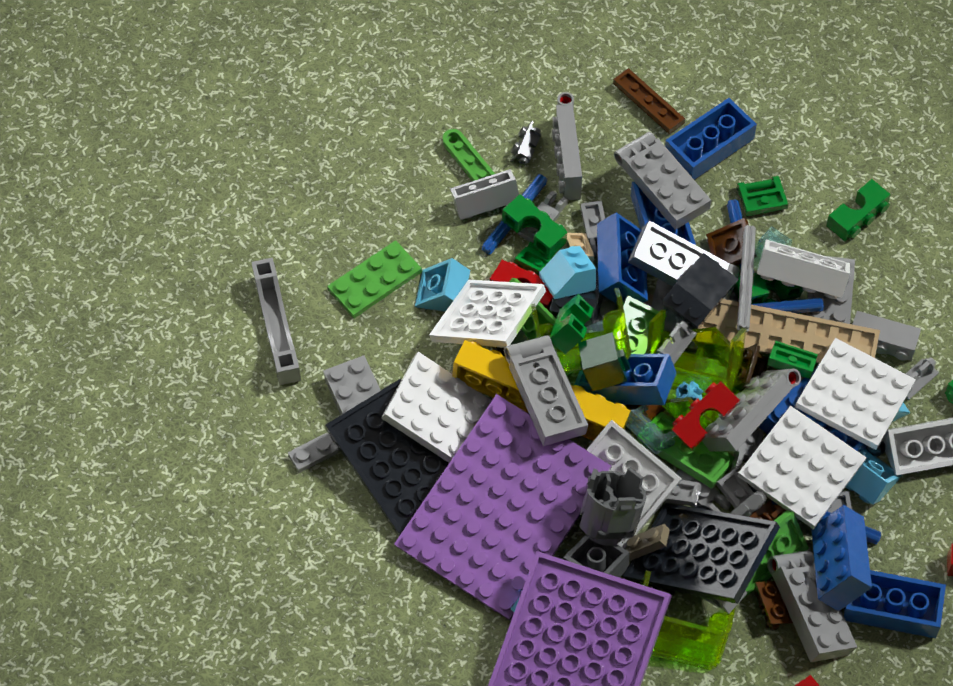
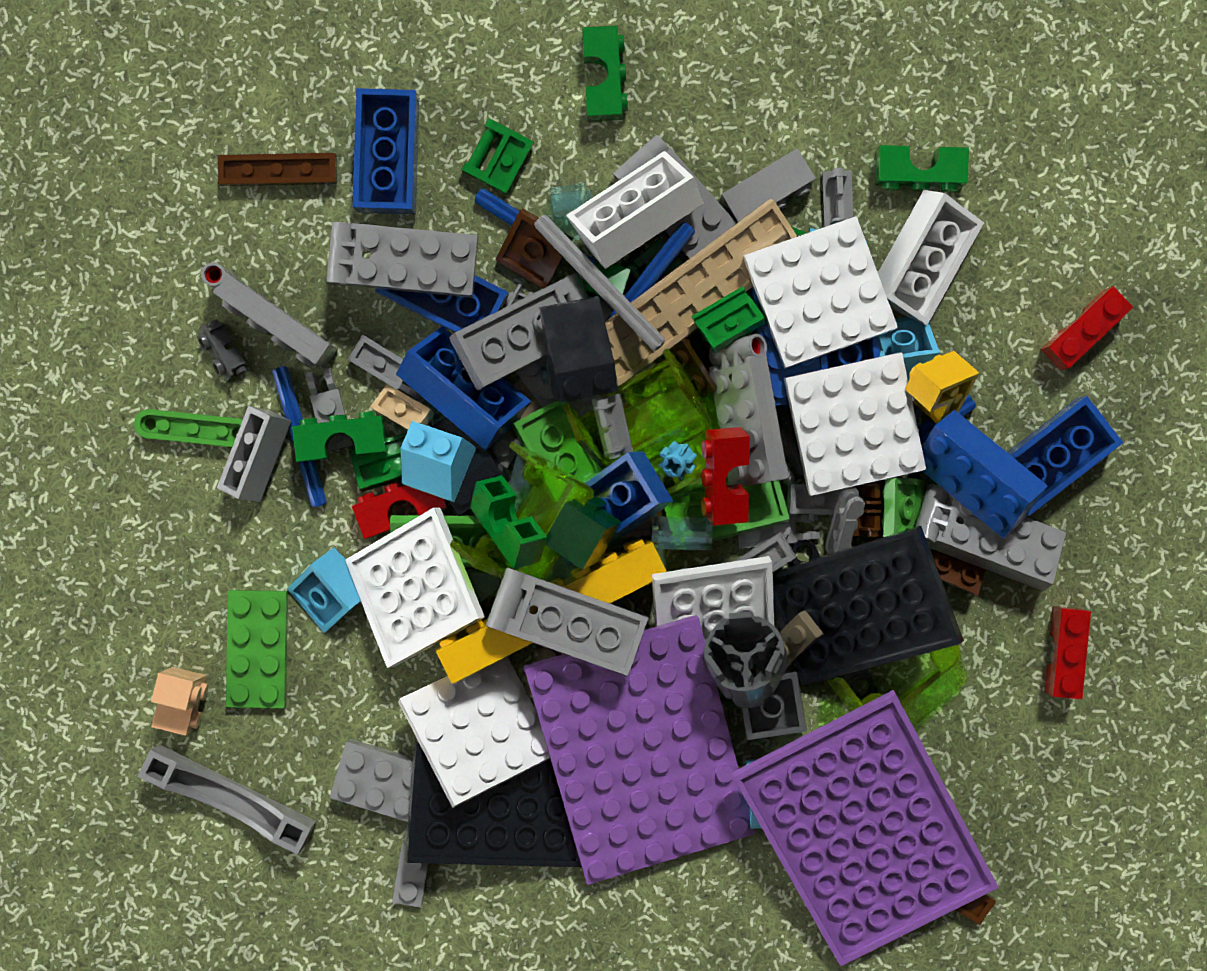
camera: 45 degrees left, 30 degrees up
(313, 257) = (178, 700): none -> light nougat brick
(871, 493) = (941, 384): none -> yellow brick

